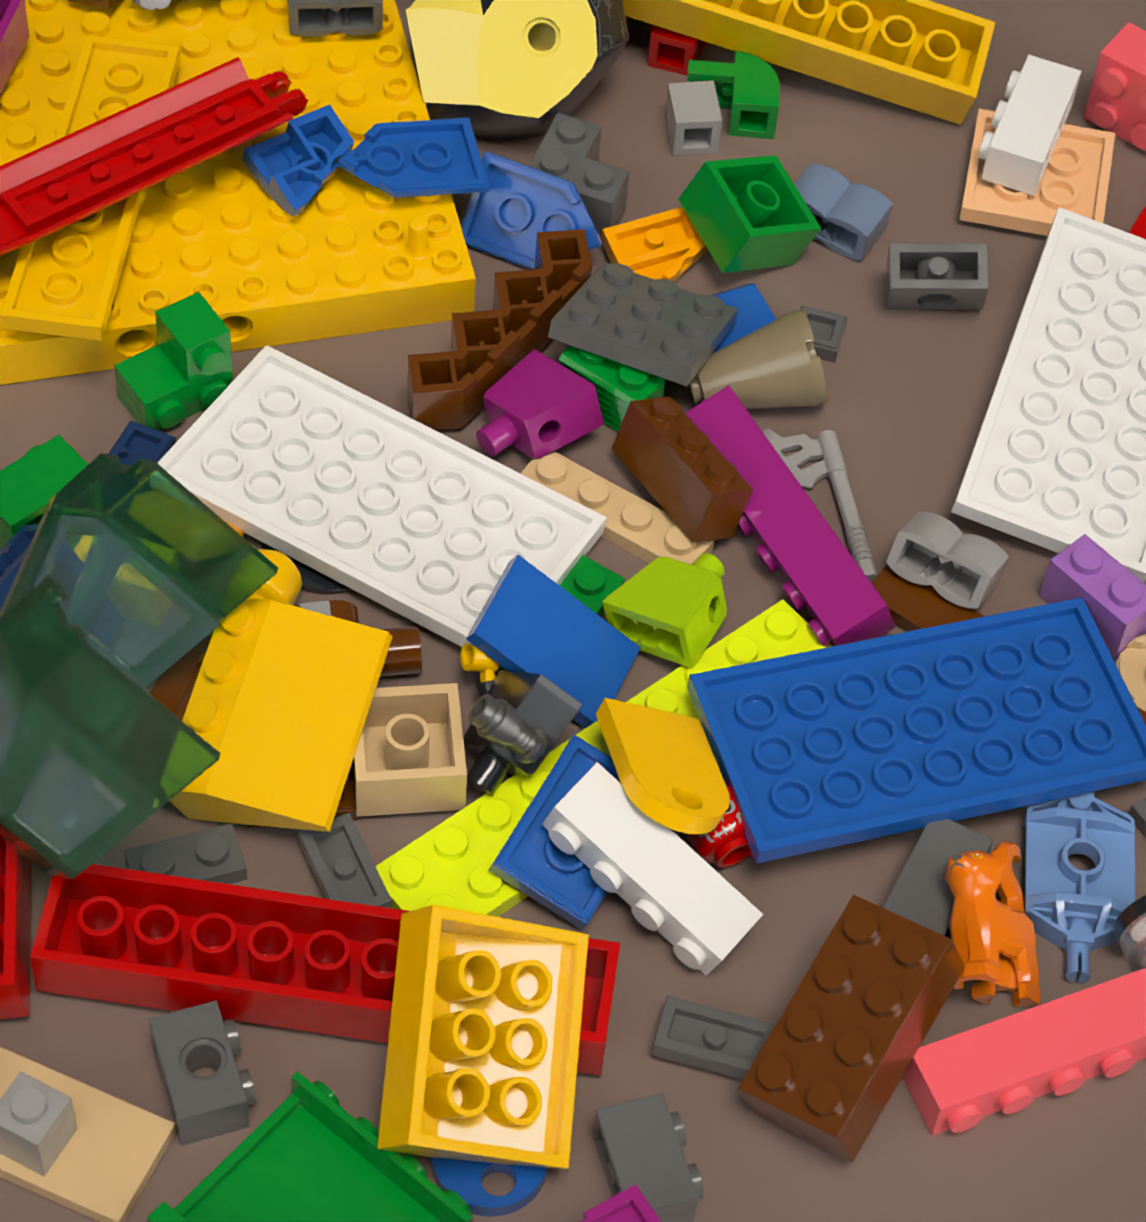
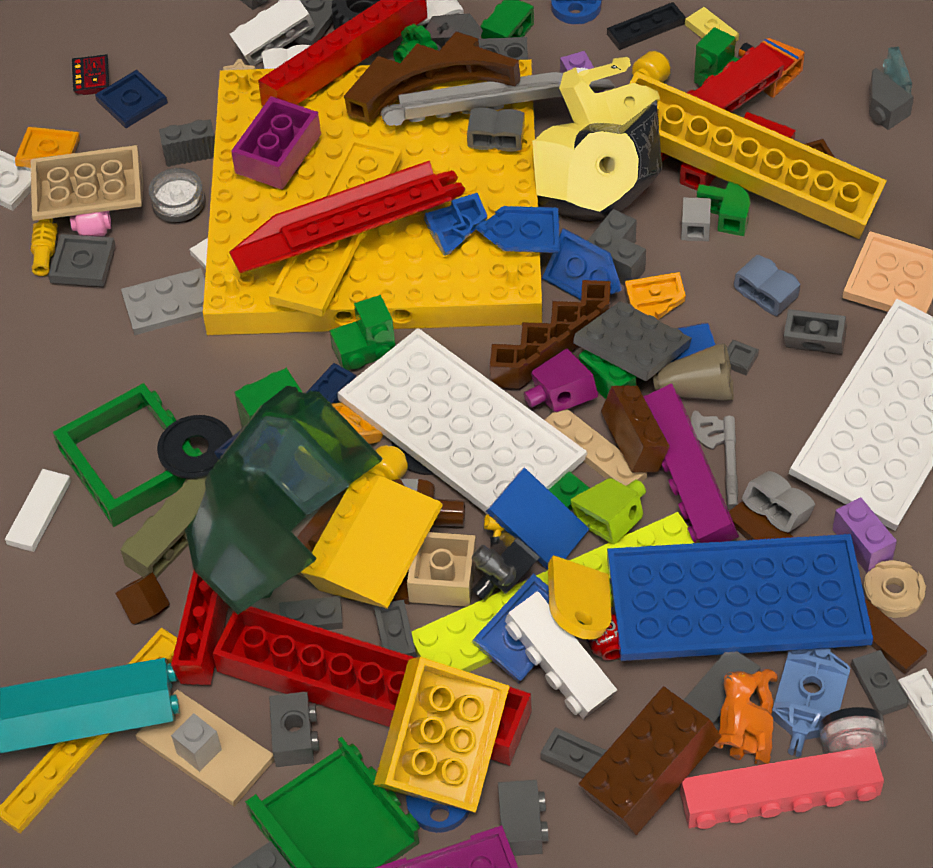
camera: 20 degrees right, 0 degrees up
(749, 213) = (711, 281): green brick -> none
(1028, 124) = (894, 245): white brick -> none

